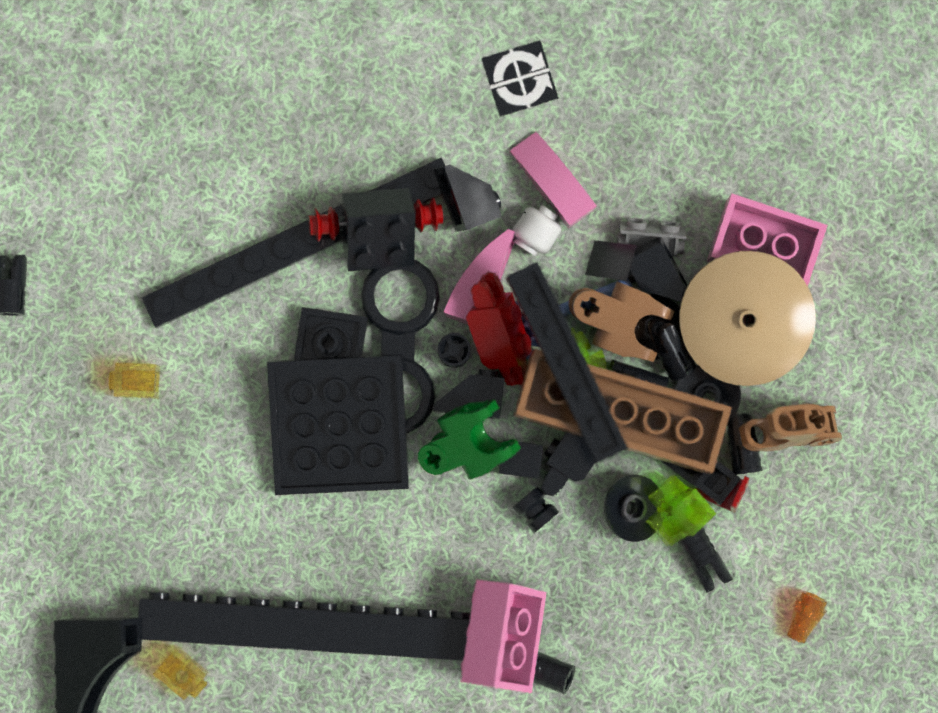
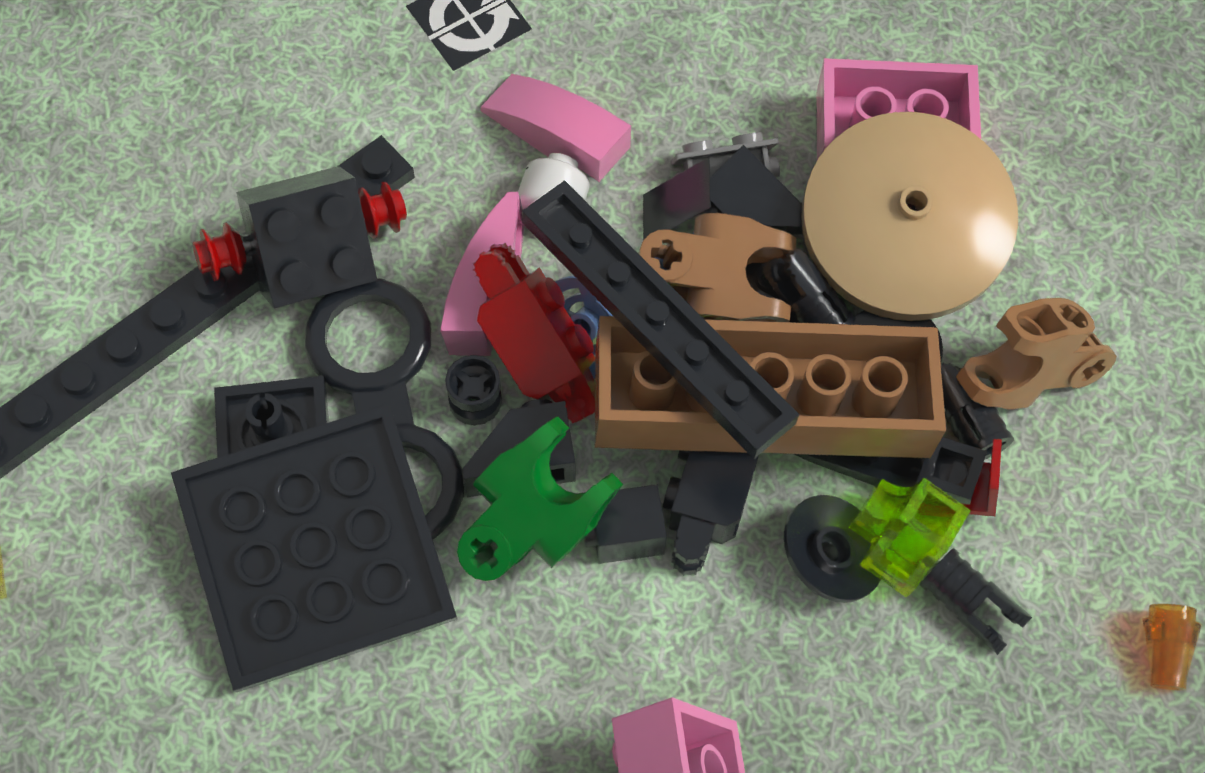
camera: 15 degrees left, 20 degrees down
(467, 198) = (432, 169): black slope -> none
(535, 509) = (670, 592): black wheel -> none

